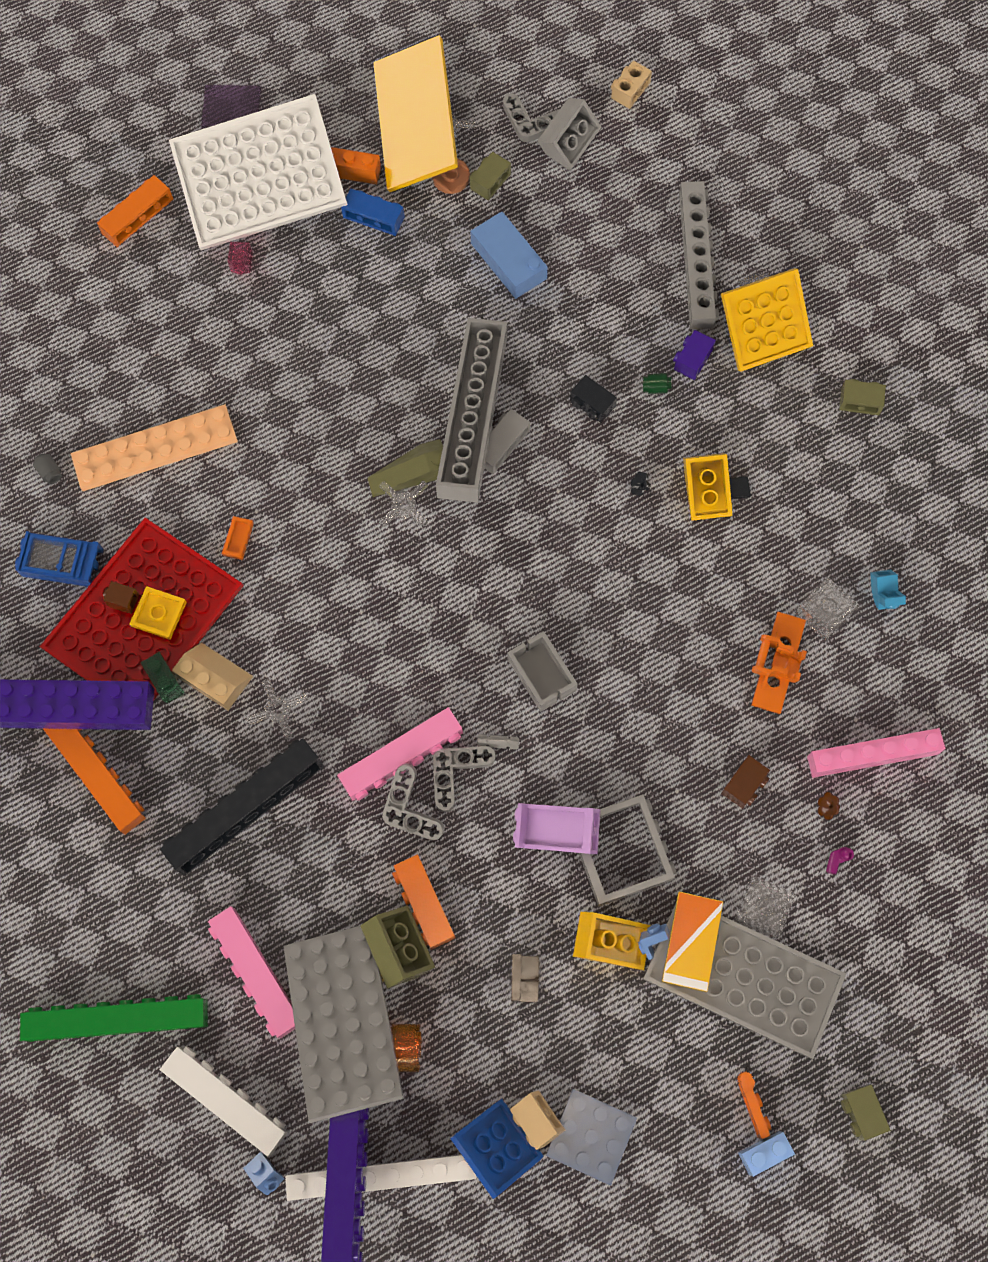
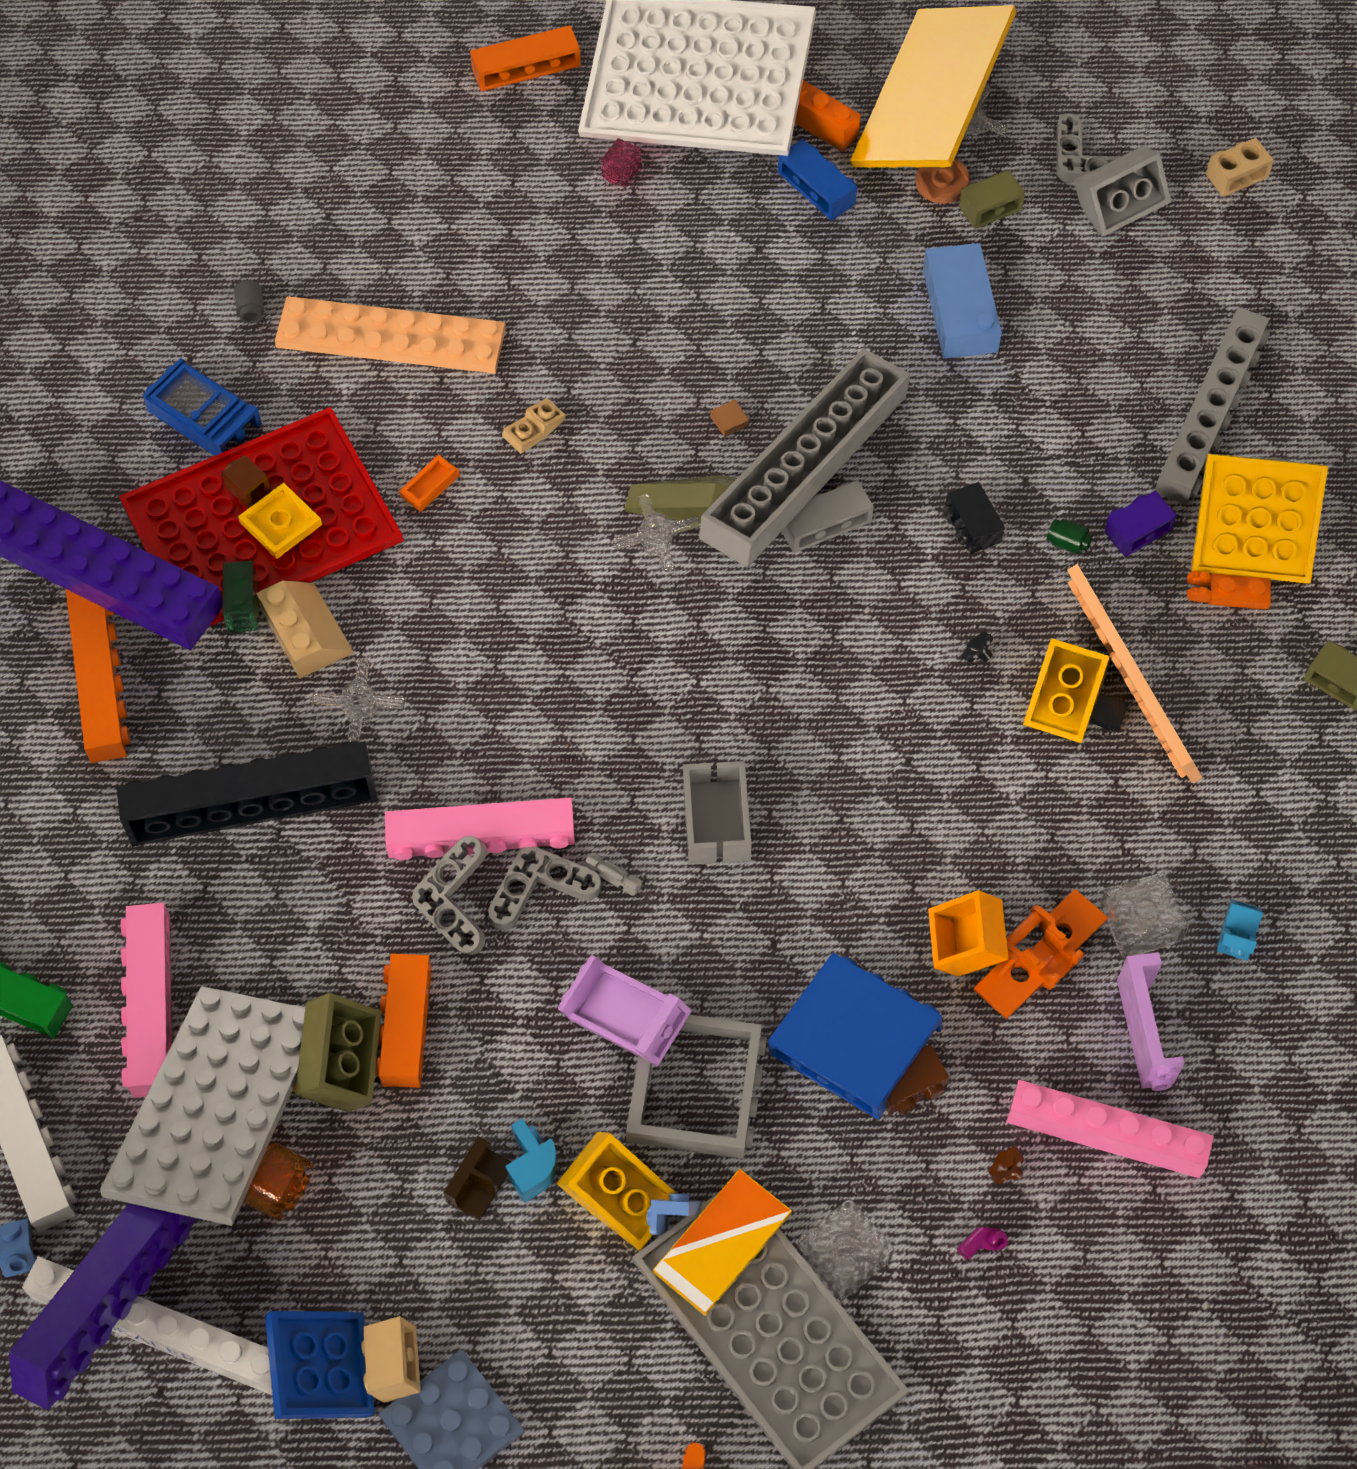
camera: 25 degrees right, 10 degrees down
(283, 467) = (535, 426): none -> tan slope
(405, 402) = (729, 418): none -> medium nougat tile
(556, 953) = (537, 1167): none -> dark azure brick
(700, 770) = (854, 1034): none -> blue panel
(734, 674) = (968, 933): none -> light orange piece
(736, 453) = (1132, 675): none -> light nougat plate
(769, 372) = (1230, 590): none -> orange hinge
(863, 678) = (1133, 982): none -> lavender panel

